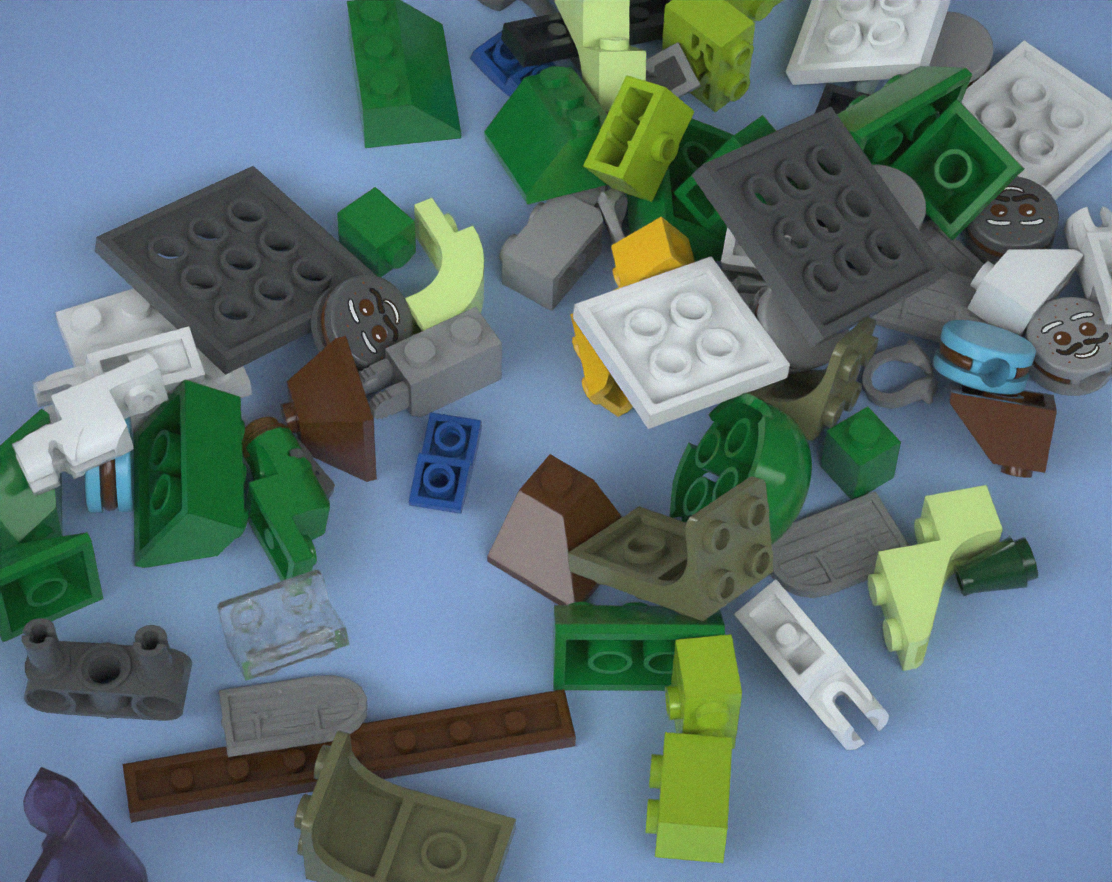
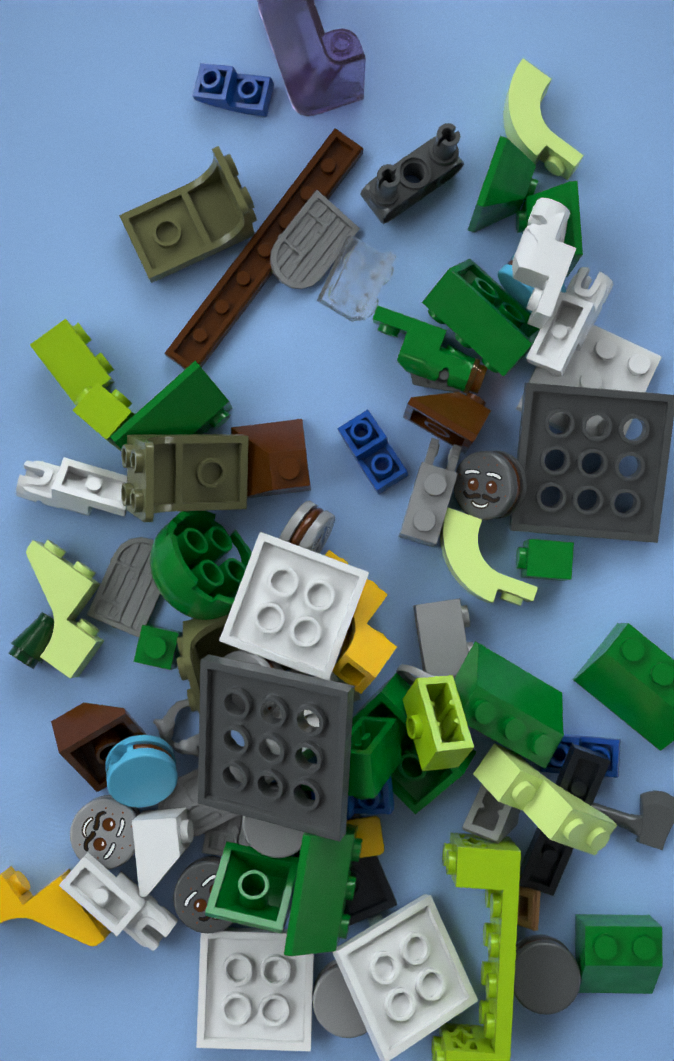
camera: 140 degrees right, 30 degrees up
(599, 426) = (309, 527): none -> light grey head

